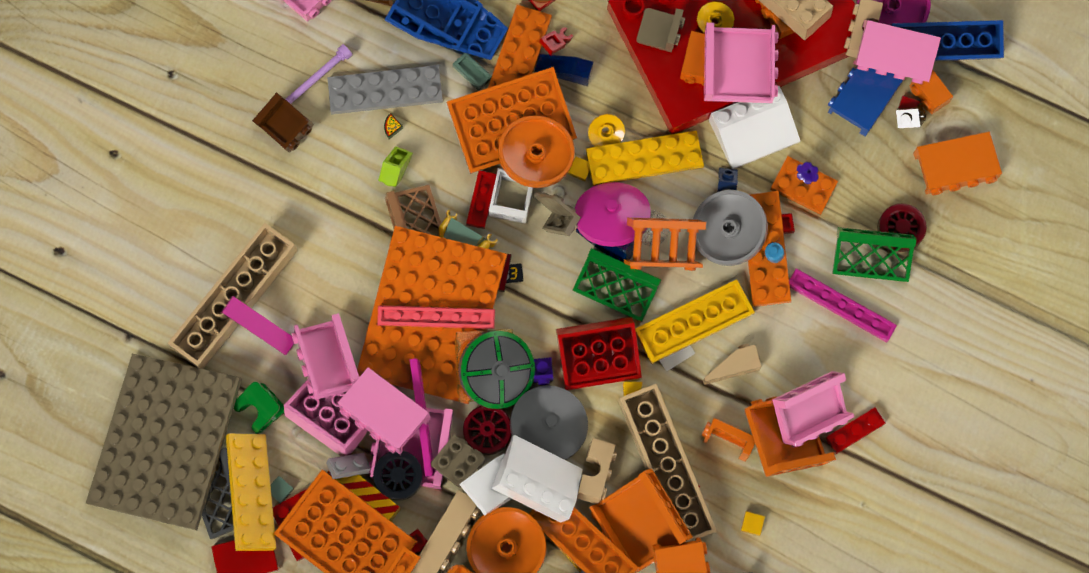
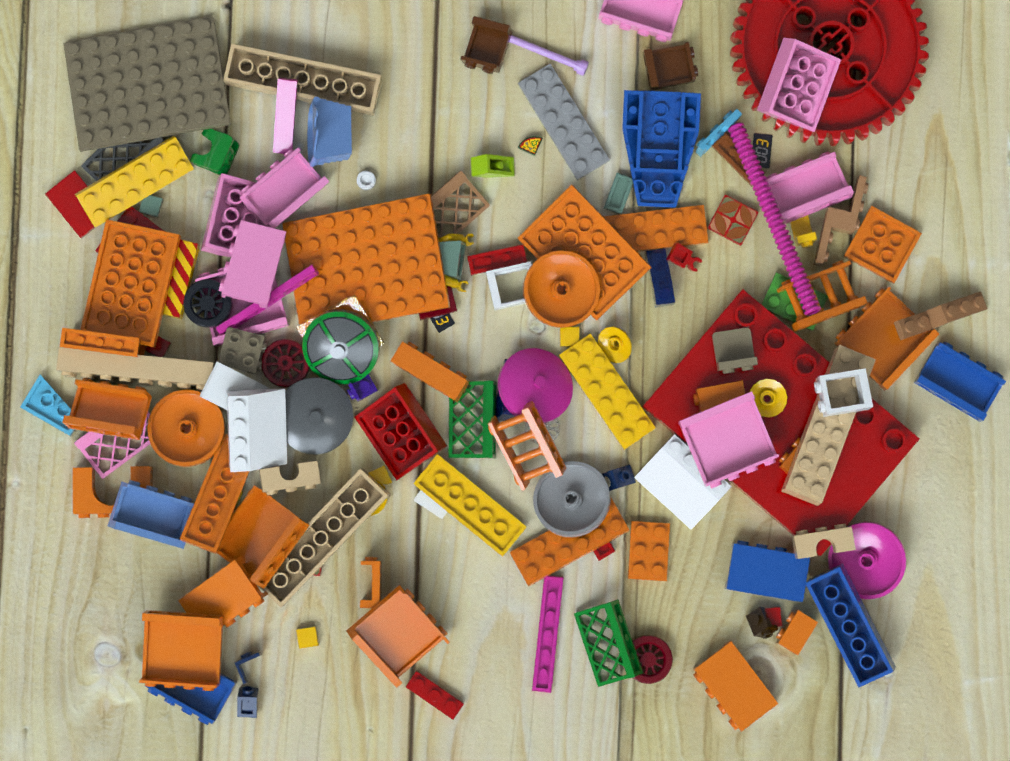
camera: 65 degrees right, 10 degrees up
(293, 293) = (328, 132): none -> medium blue piece
(348, 465) = (194, 255): light grey plate -> none
(353, 283) = (366, 180): none -> white tile
(436, 317) = (362, 270): coral tile -> none
(556, 301) = (429, 371): none -> orange brick
(563, 216) = (509, 340): dark tan bracket -> none
(740, 362) = (448, 562): tan slope -> none
(774, 252) = (565, 550): dark azure piece -> none
(807, 173) = (657, 549): dark purple plant -> none
(811, 409) = (430, 647): bright pink panel -> none
(897, 51) = (812, 582): bright pink panel -> none

